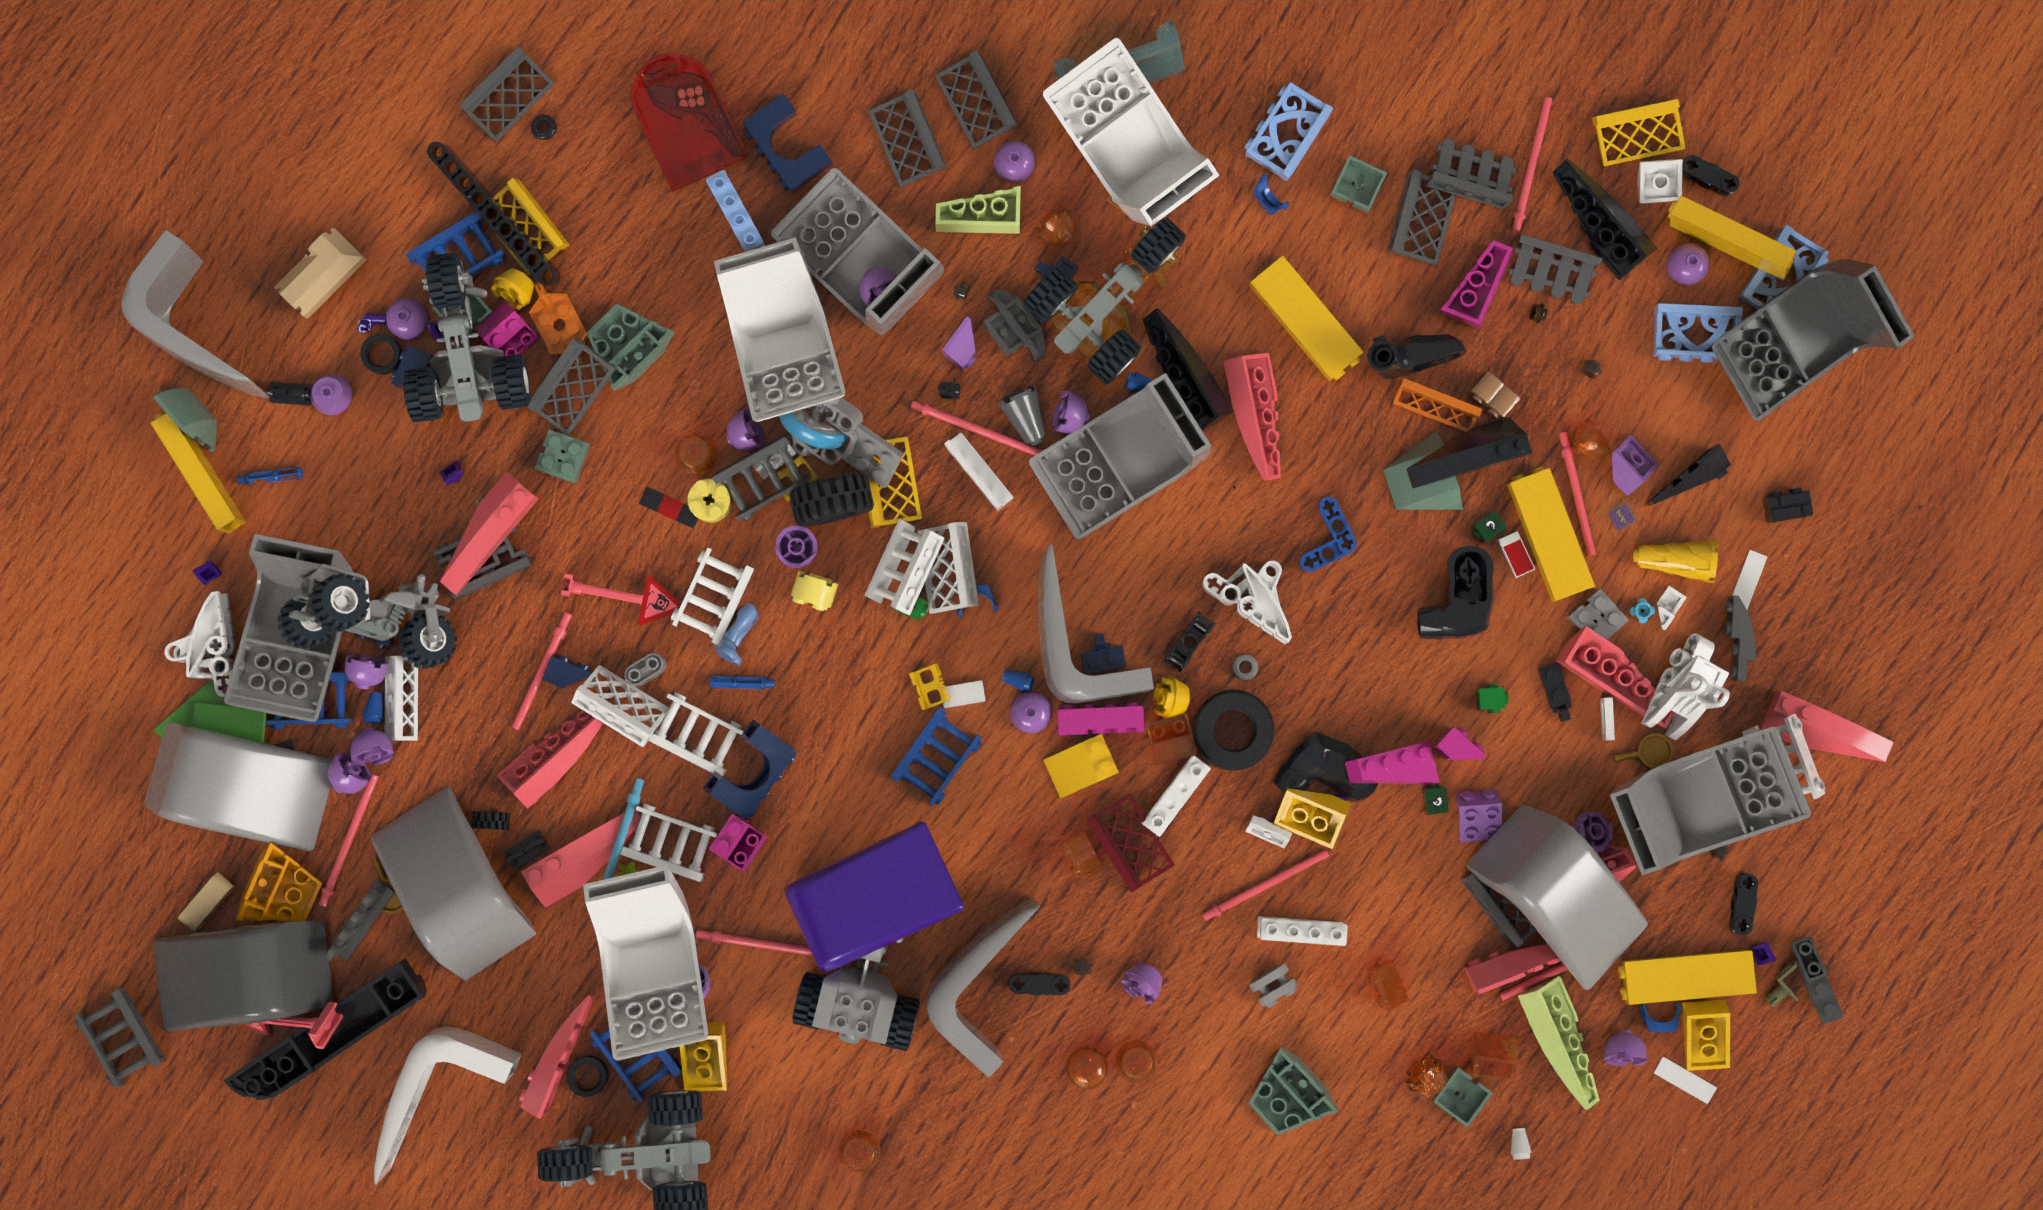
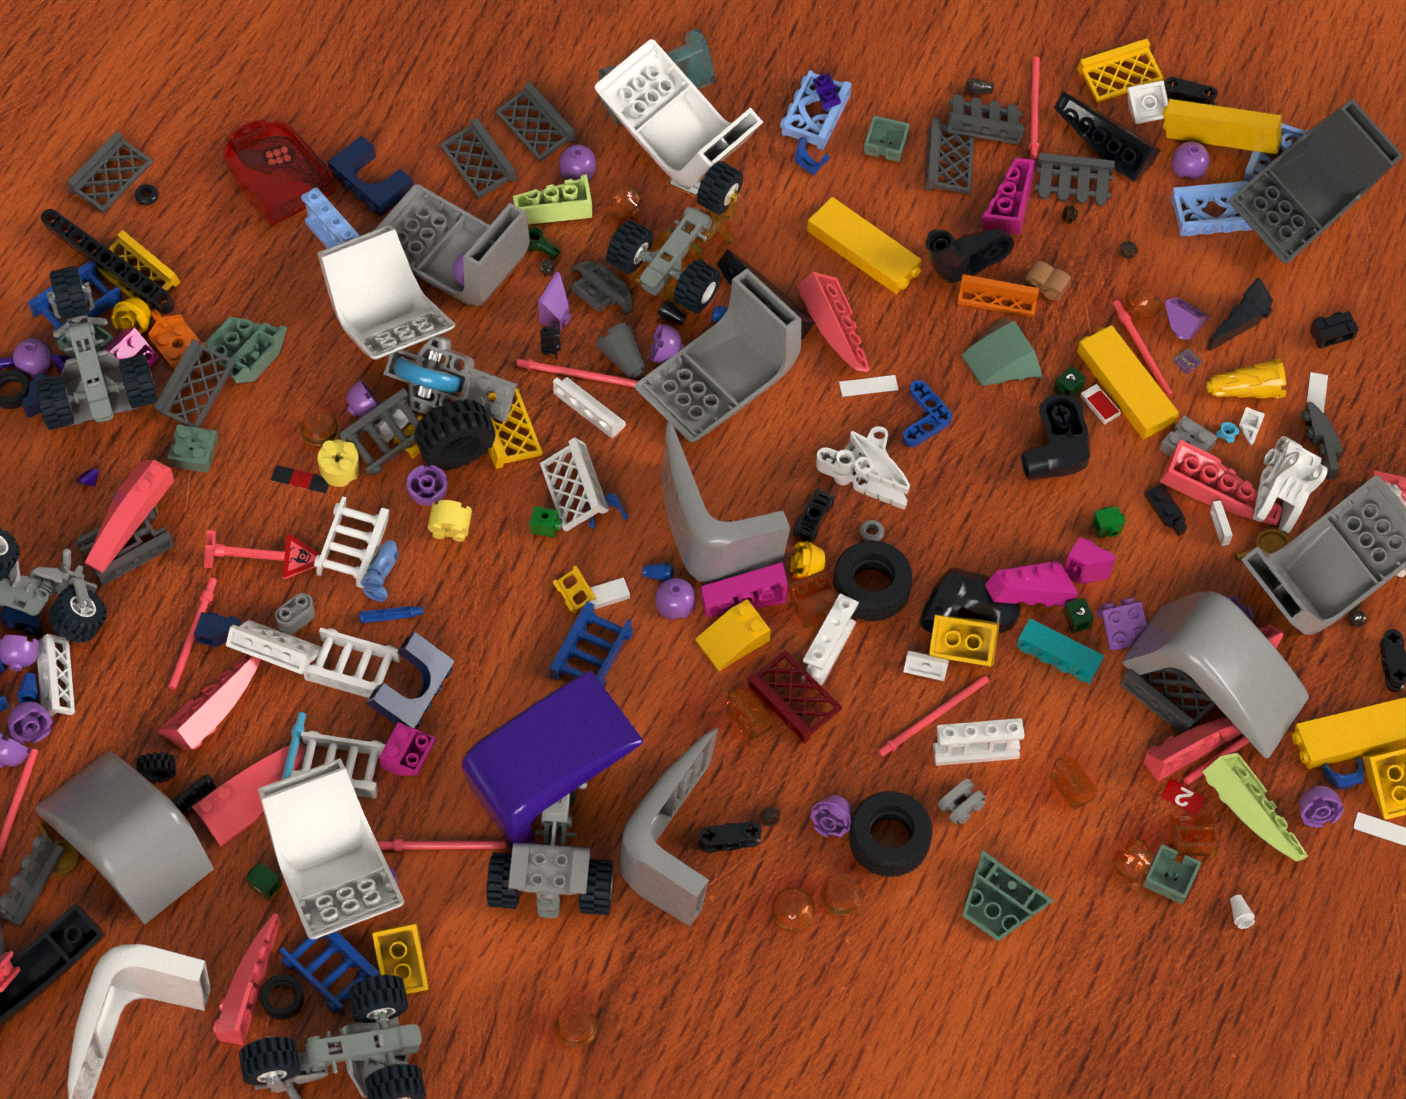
camera: 15 degrees left, 25 degrees down
(582, 954) = (263, 881): none -> dark green brick
(916, 572) = (543, 489): white fence -> none
(960, 262) = (541, 243): none -> dark green pin
(1080, 370) = (671, 313): none -> black cone
(1224, 1017) = (894, 807): none -> black tyre
(1277, 490) = (868, 385): none -> white sticker
(1304, 115) = (827, 91): none -> dark purple slope
(1407, 837) = (1060, 651): none -> teal brick
(1472, 451) = (1040, 322): black wedge -> none
(1475, 129) = (978, 87): none -> clear smoke cone
(1494, 1012) = (1183, 797): none -> red sticker

